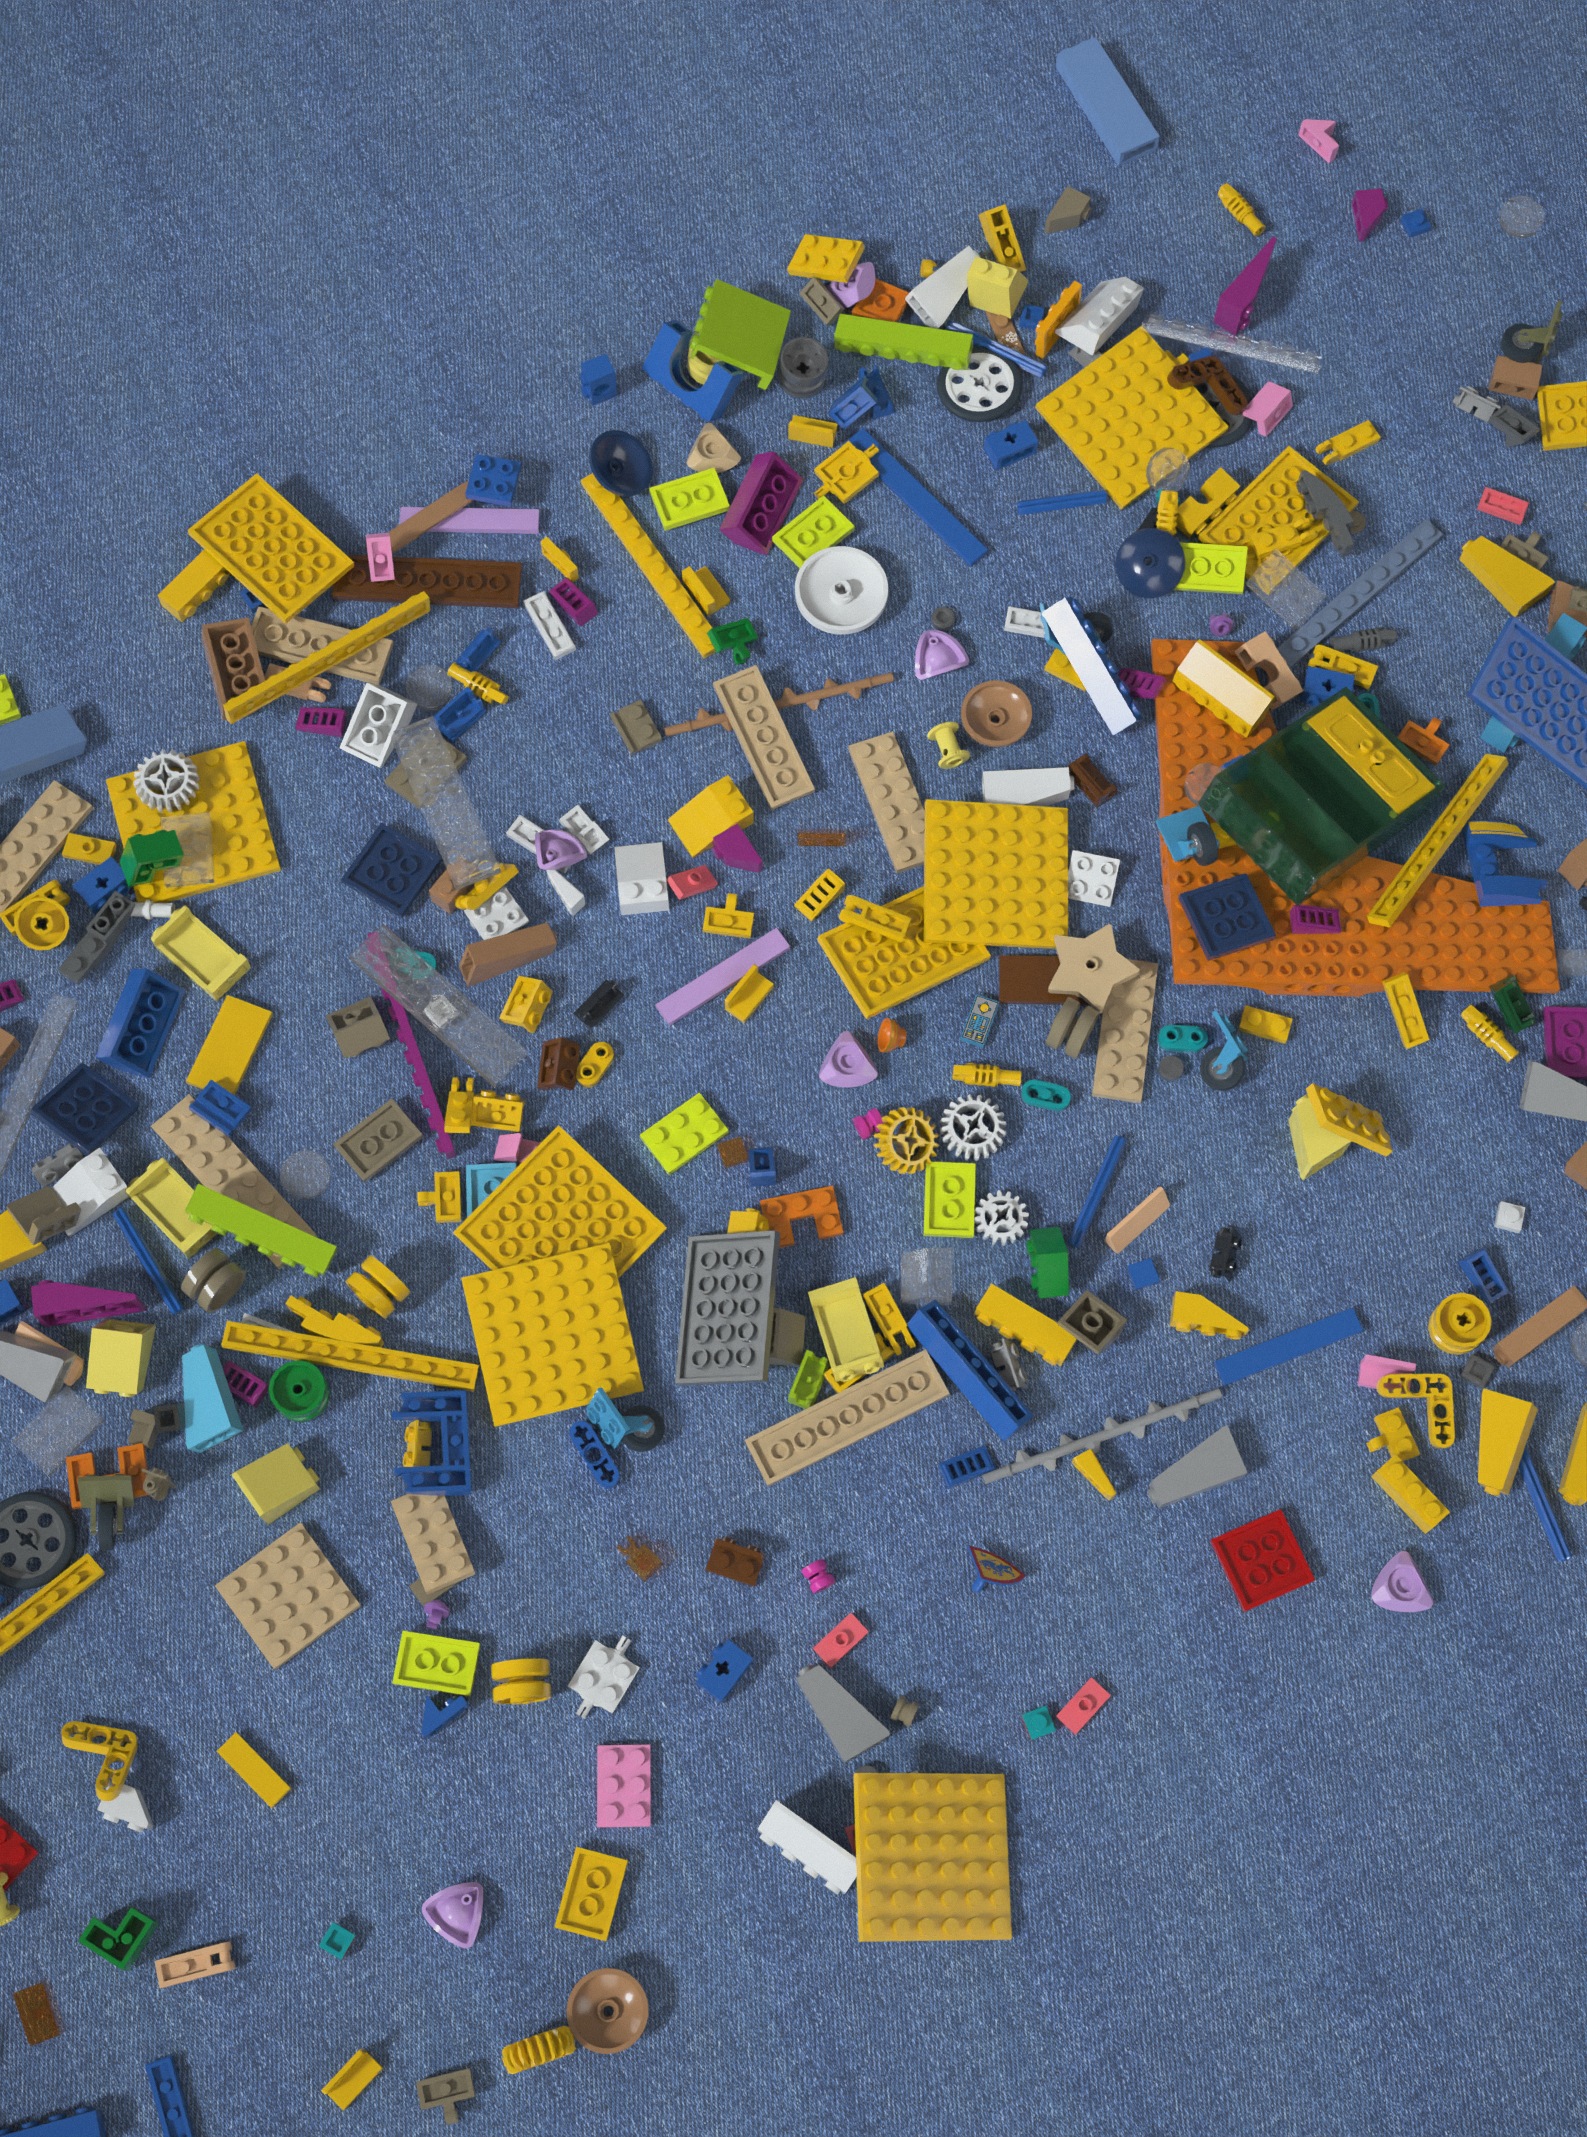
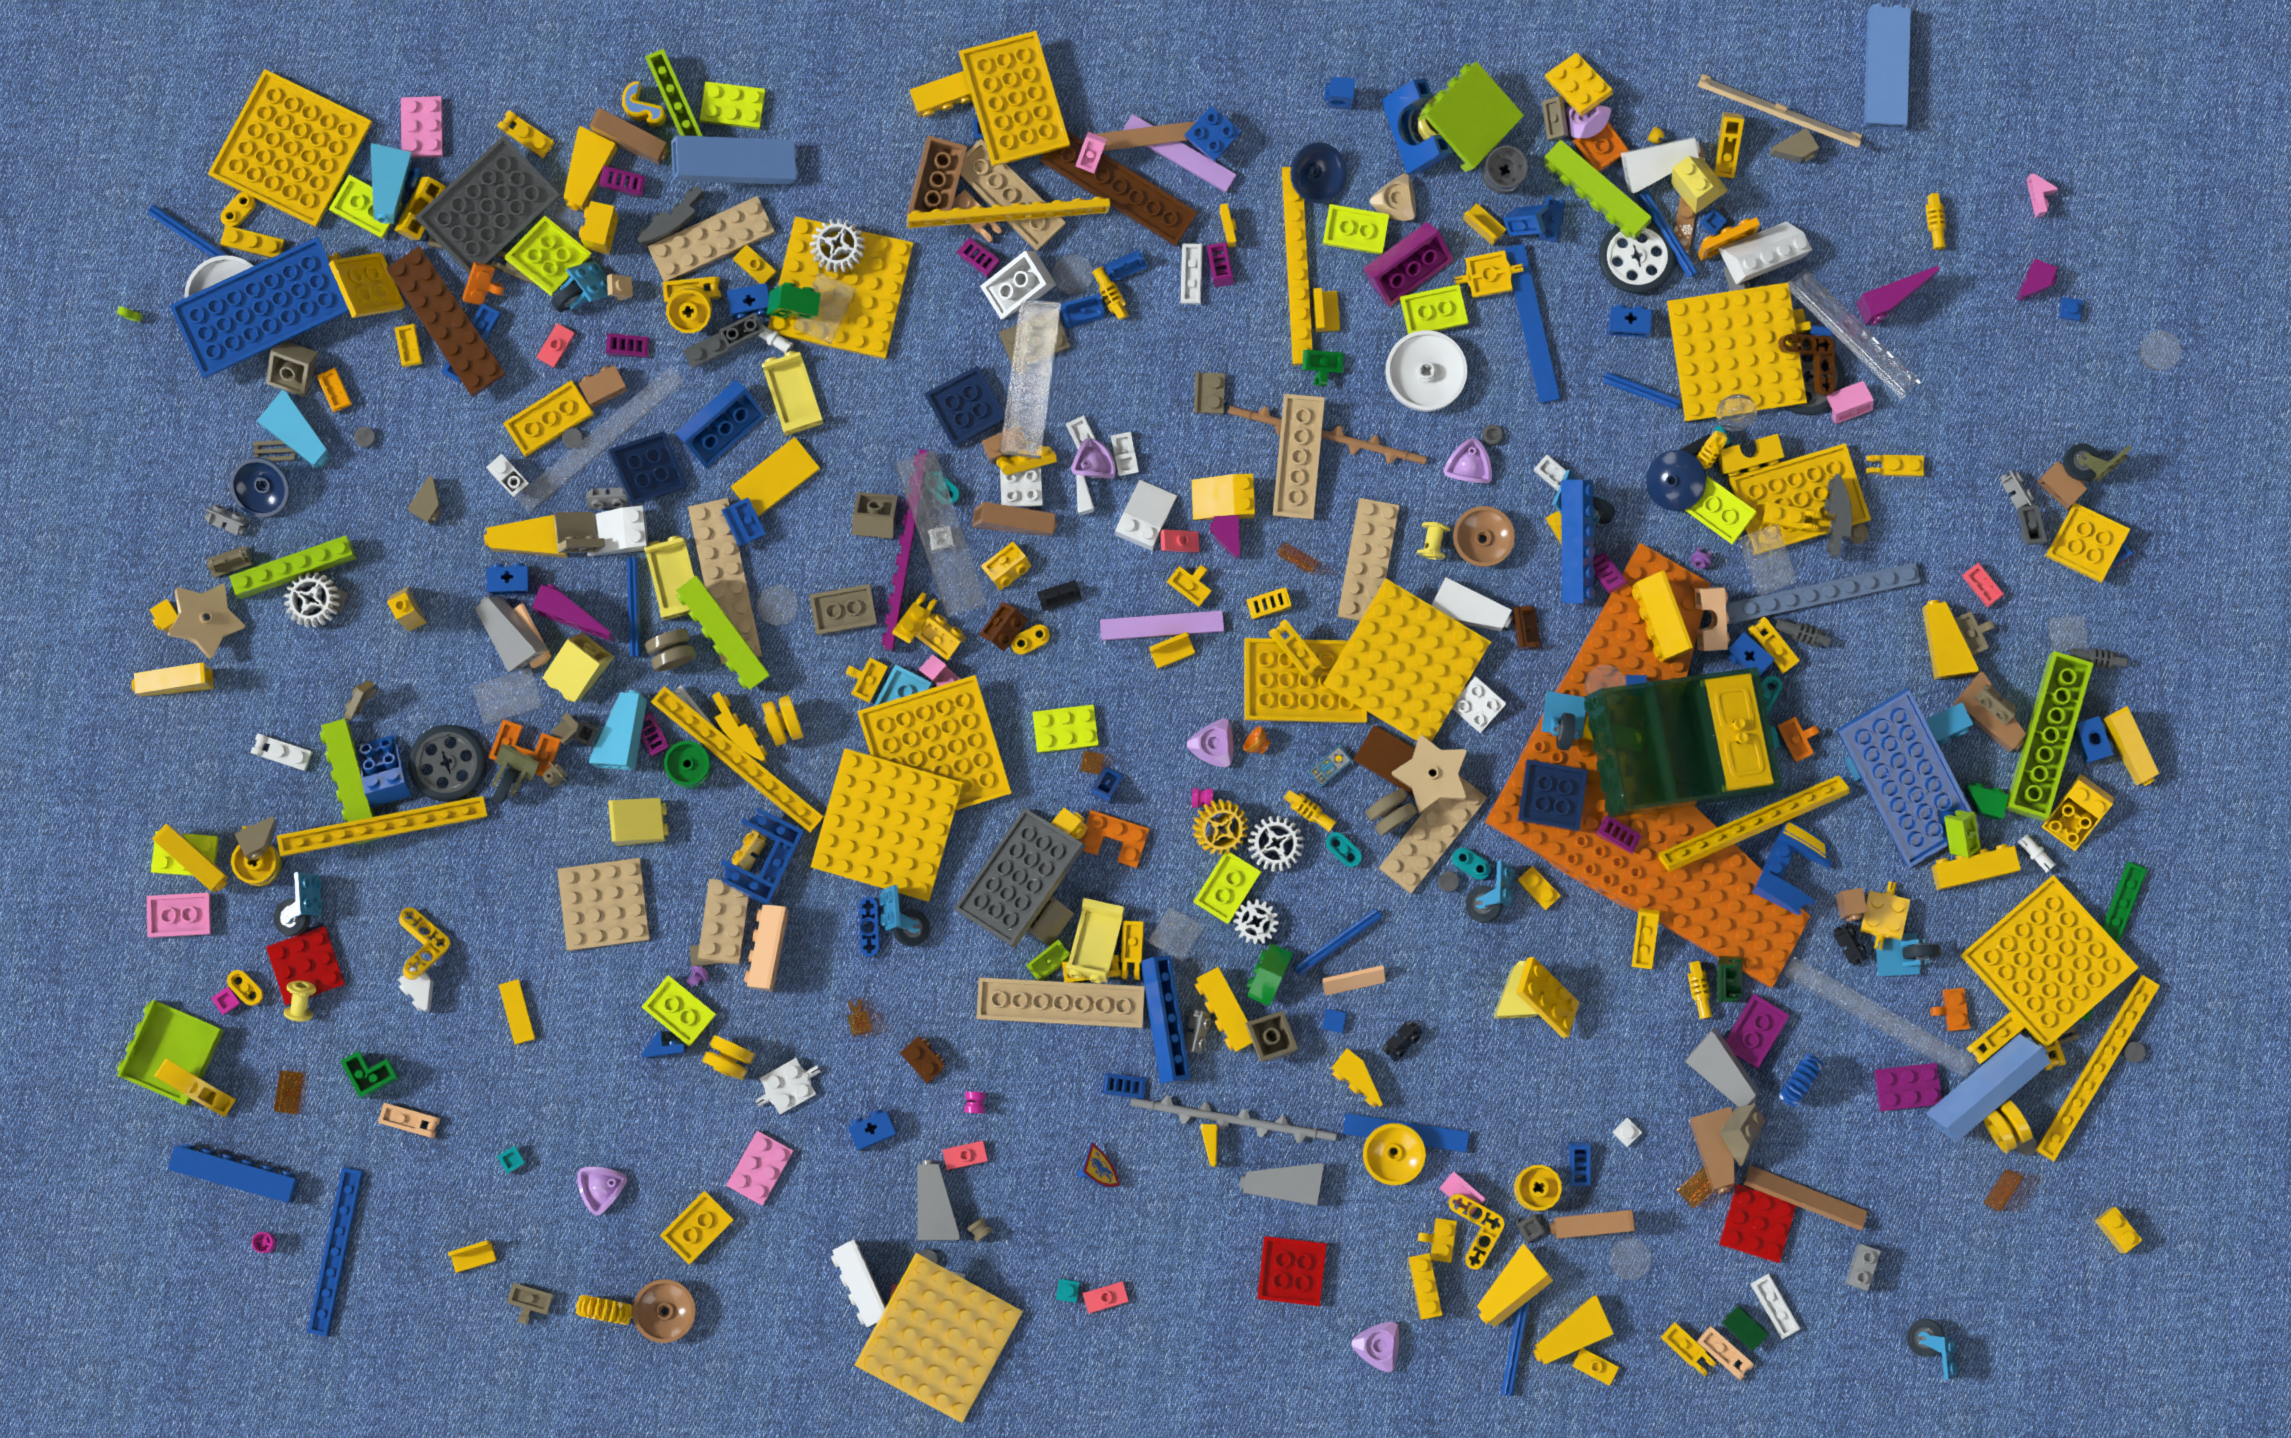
camera: 30 degrees right, 10 degrees up
(496, 1538) = (767, 947): none -> light nougat slope
(1031, 187) = (1780, 111): none -> tan piece
(1308, 1378) = (1398, 1167): none -> yellow dish

